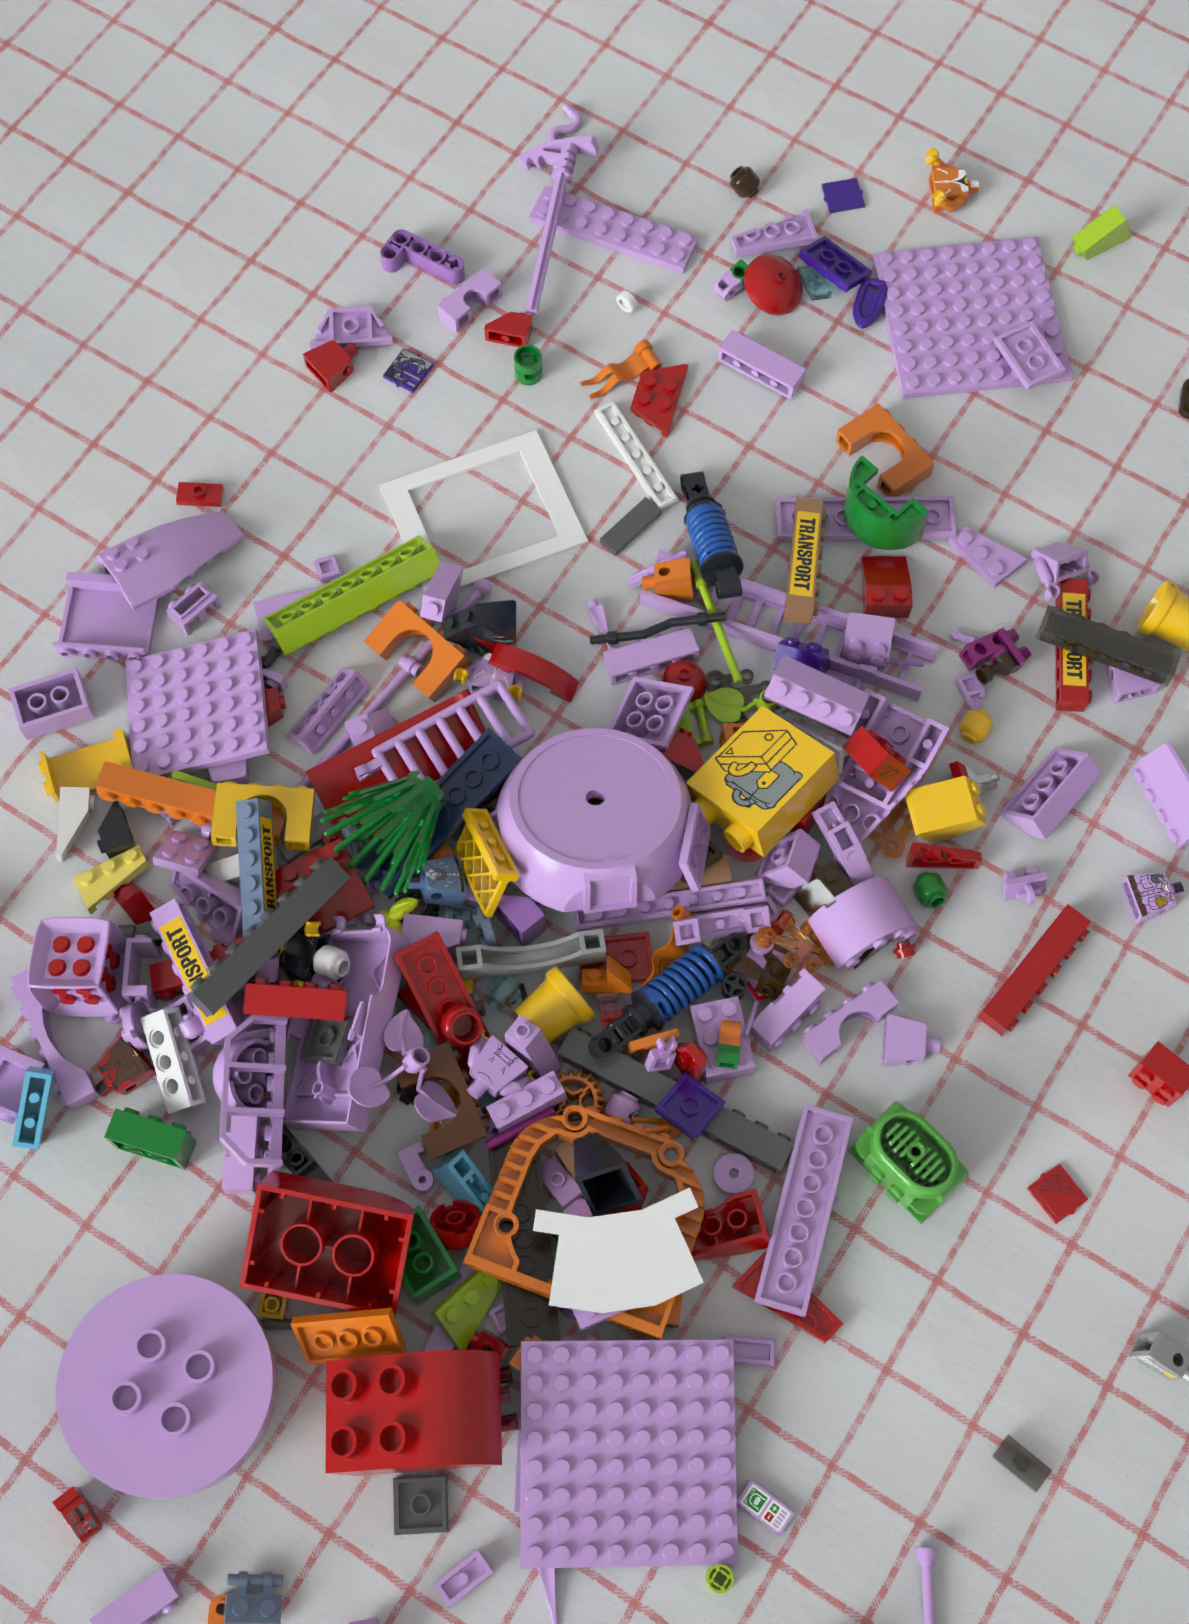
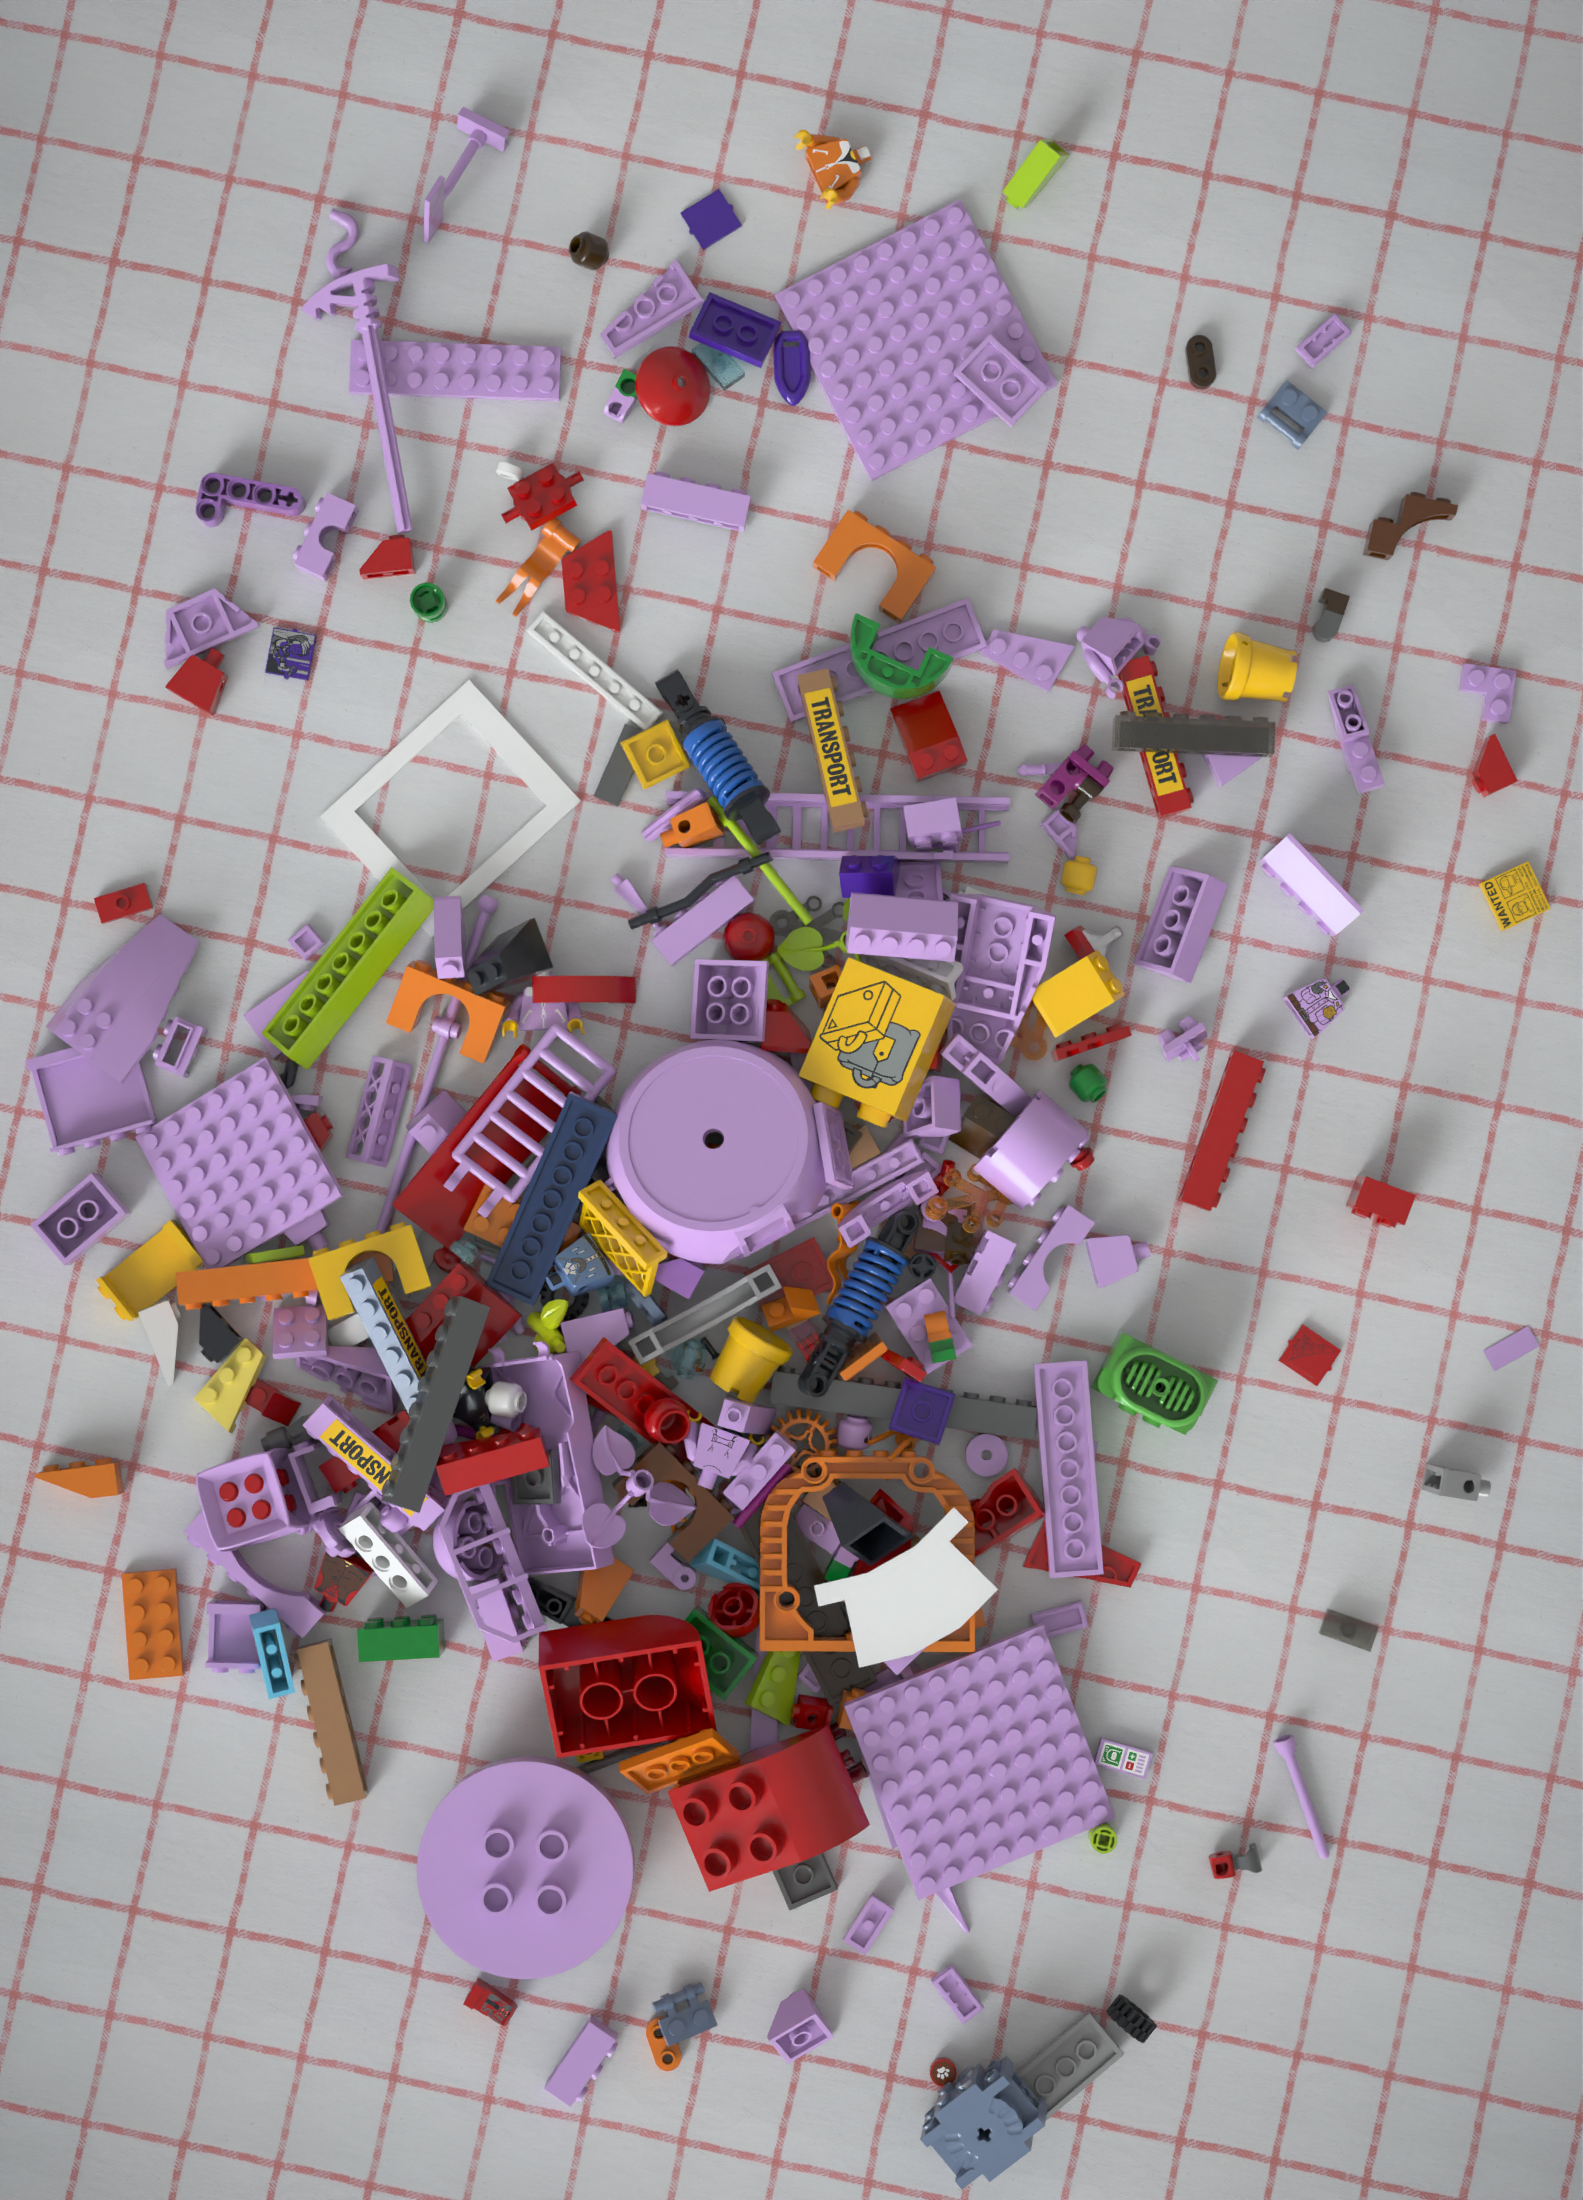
camera: 20 degrees left, 20 degrees up
(57, 1194) = (332, 1722): none -> medium nougat brick
(346, 1157) = (599, 1590): none -> orange slope
(406, 807) = (526, 1225): green plant -> none
(644, 324) = (542, 496): none -> red plate
(660, 525) = (655, 754): none -> yellow tile
(662, 1056) = (875, 1371): lavender plate -> none
(693, 88) = (480, 131): none -> lavender piece
(877, 757) = (989, 976): red brick -> none

